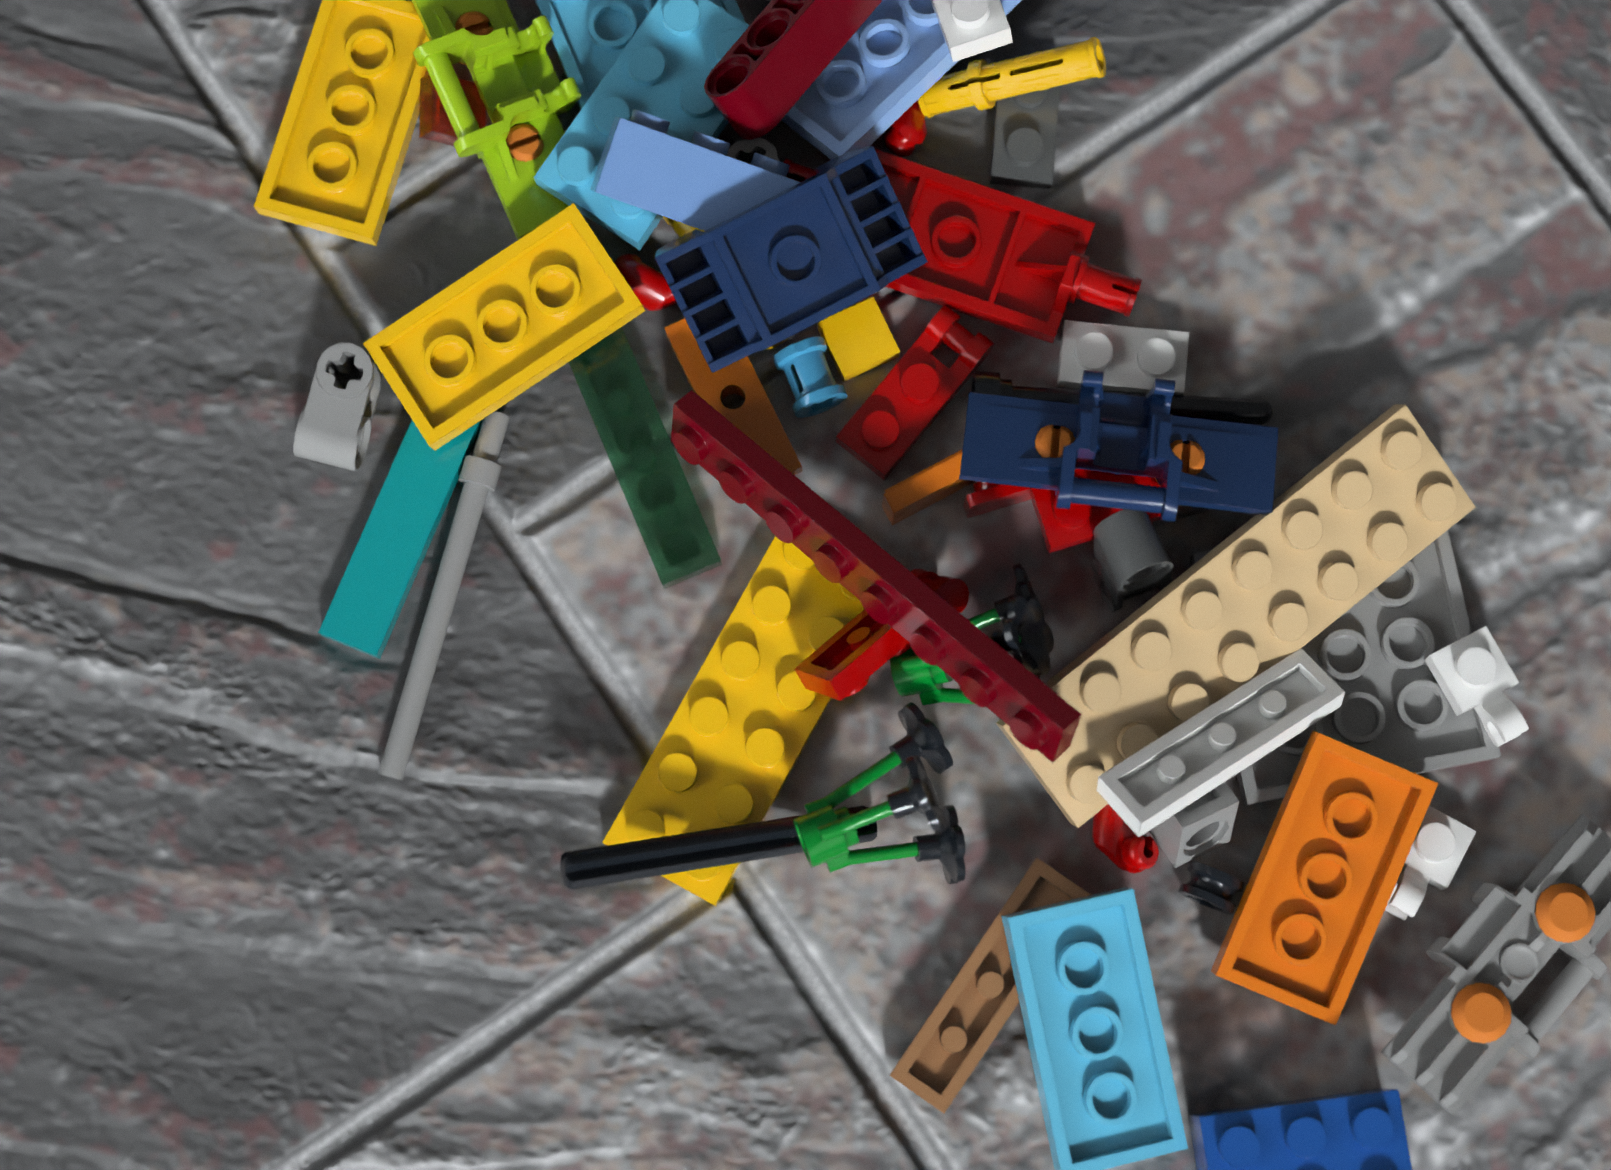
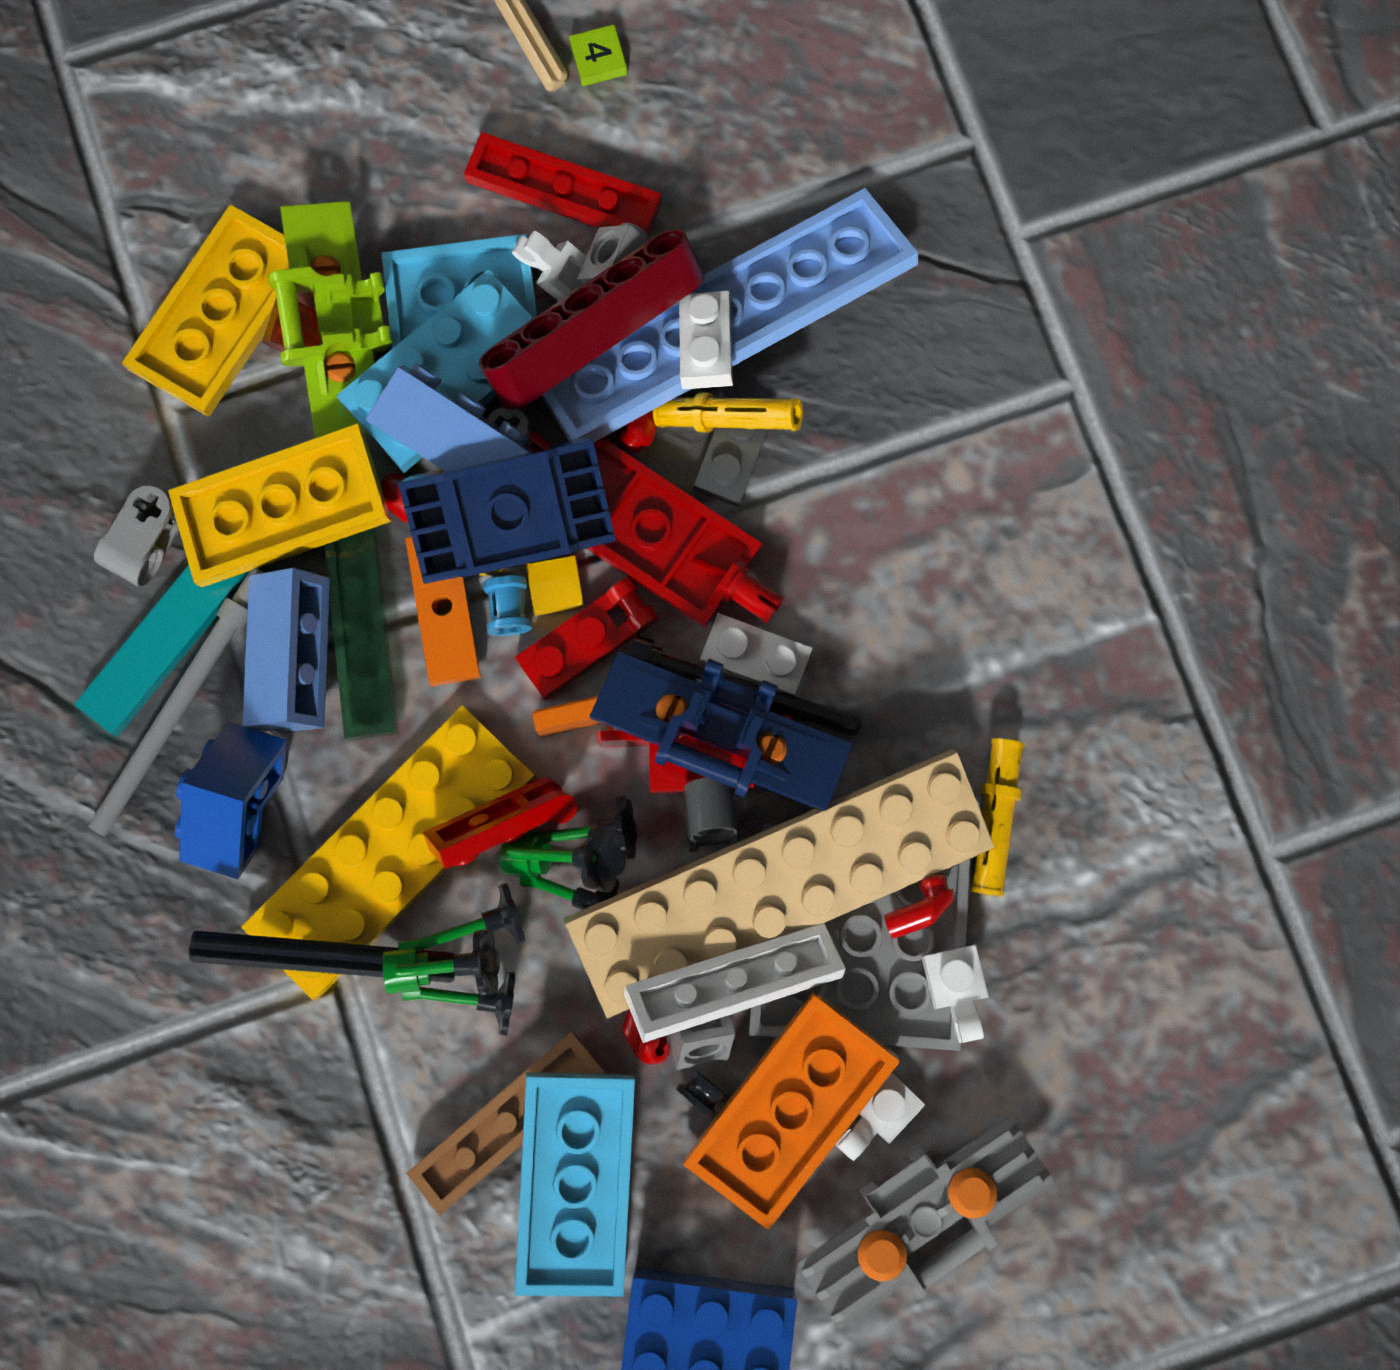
camera: 15 degrees right, 0 degrees up
(546, 693) = (226, 799): none -> blue brick
(562, 499) = (286, 651): none -> medium blue brick
(881, 583) = (502, 790): dark red plate -> none
(1413, 606) = (924, 912): none -> red arm
(1461, 450) = (998, 814): none -> yellow pin

